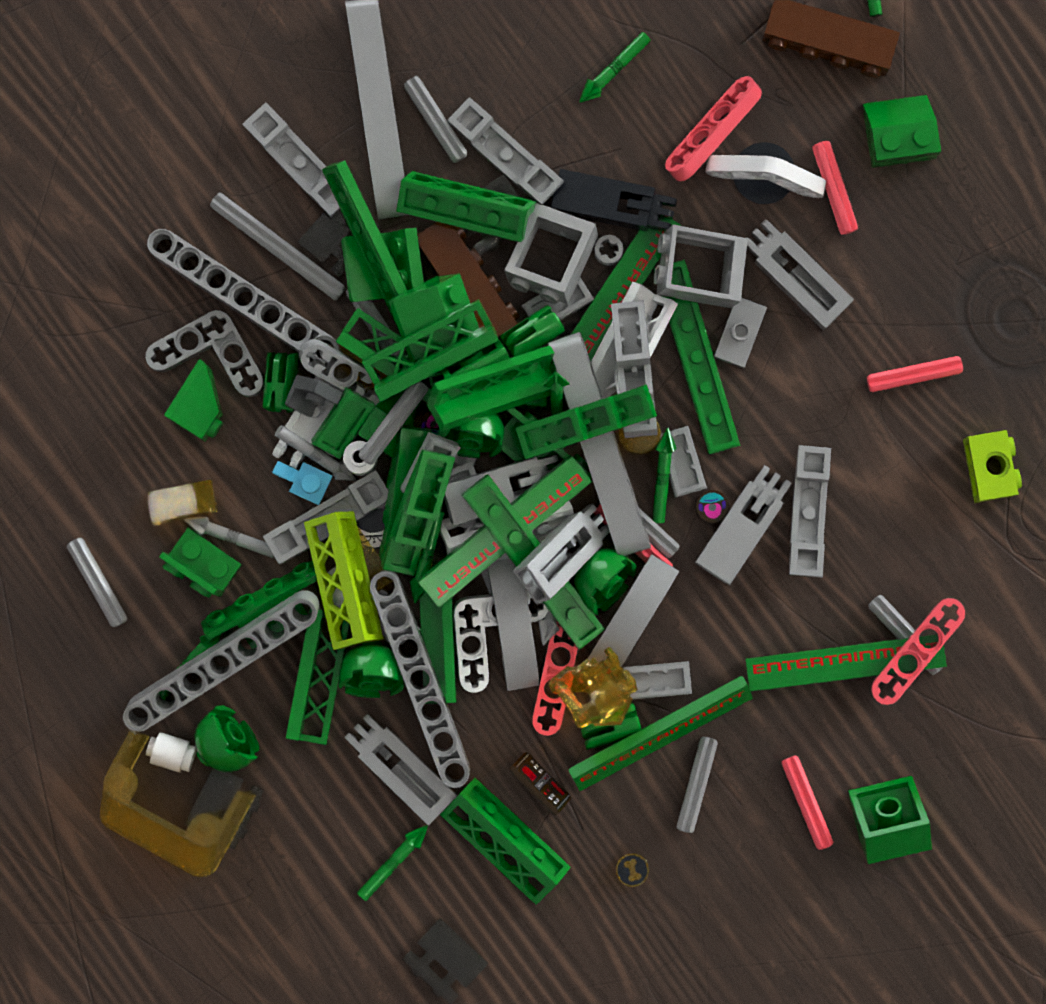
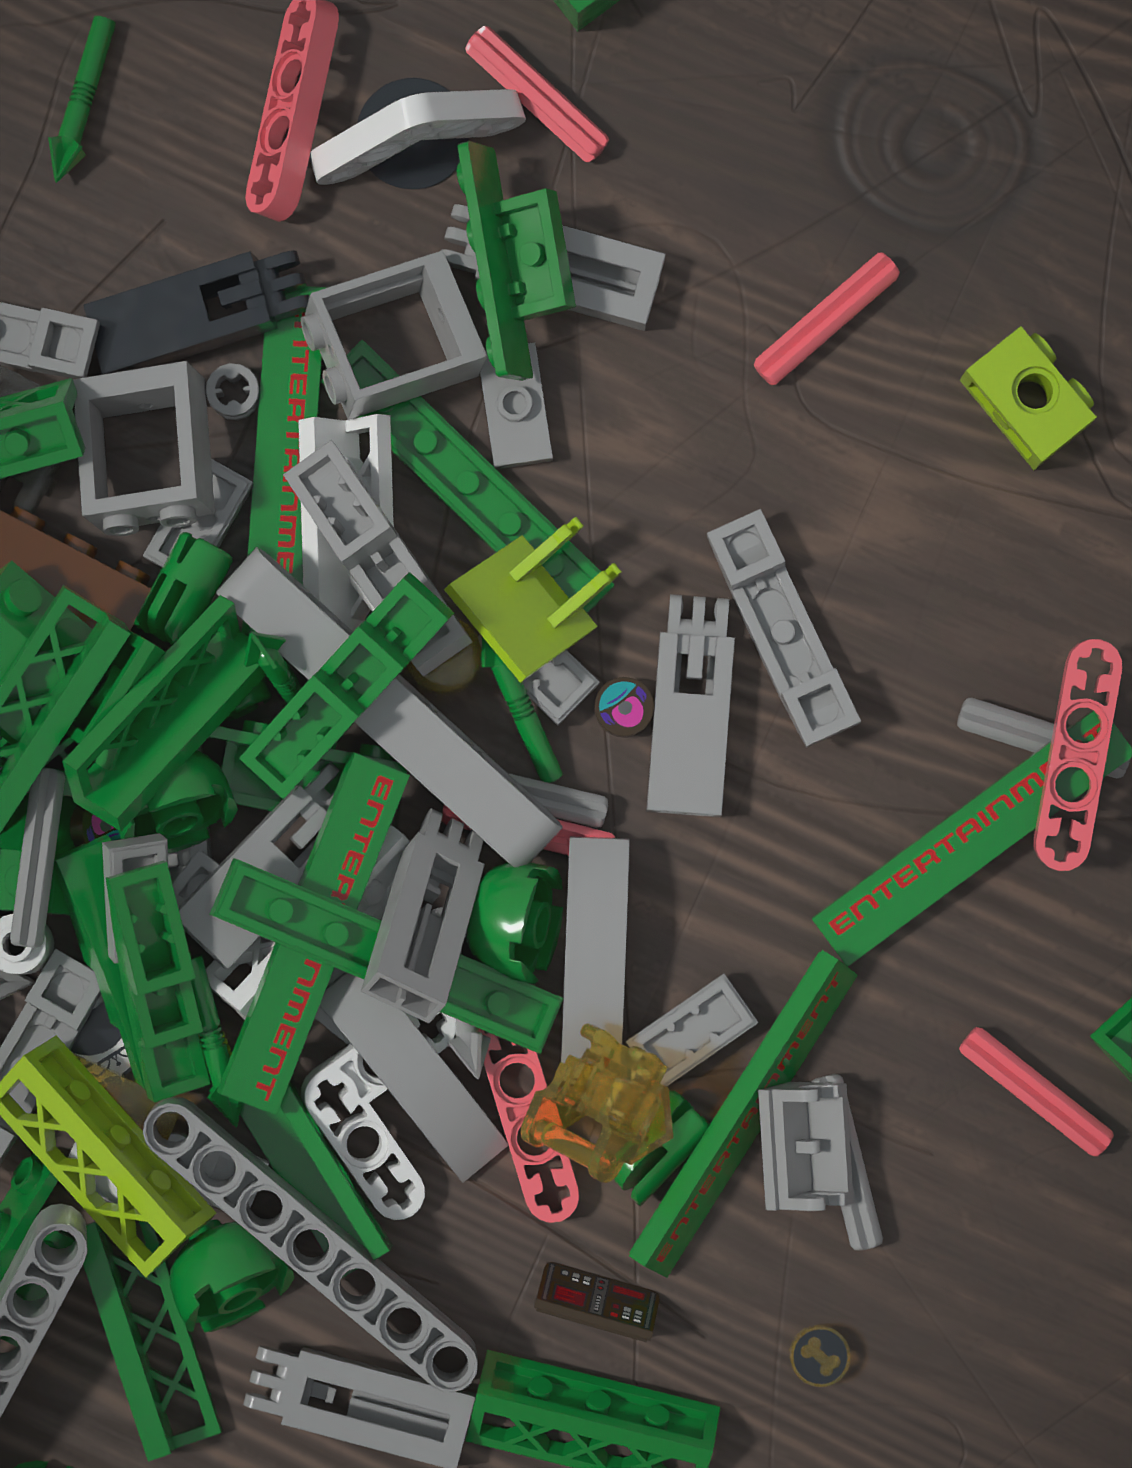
camera: 30 degrees left, 0 degrees up
(682, 765) = (806, 1146): none -> light grey hinge
(690, 430) = (523, 607): none -> lime plate
(782, 261) = (517, 257): none -> green bracket

